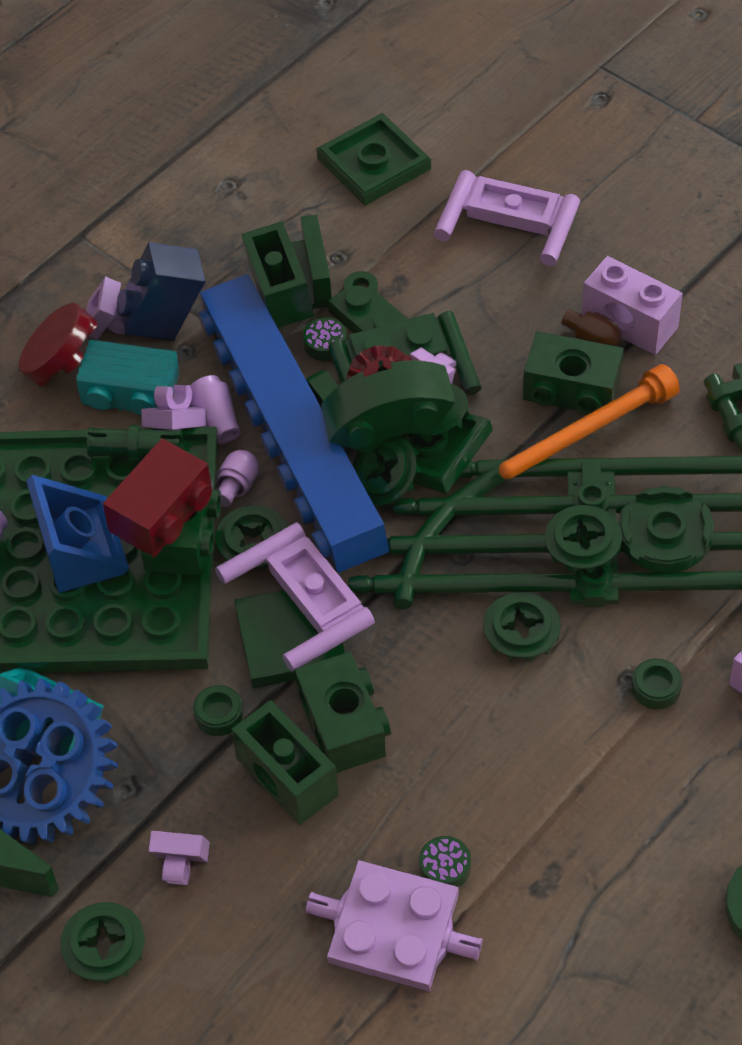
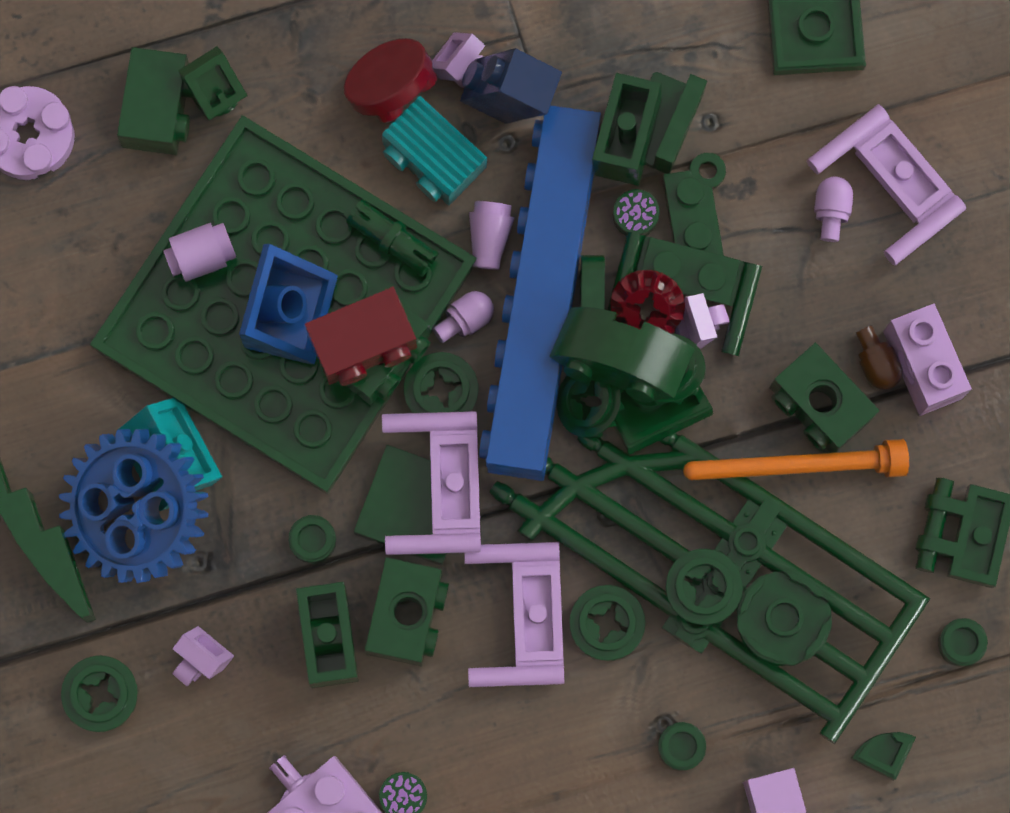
camera: 25 degrees right, 25 degrees up
(173, 411) = (446, 222): lavender tile -> none
(454, 650) = (535, 615): none -> lavender plate
(477, 254) = (833, 206): none -> lavender cylinder

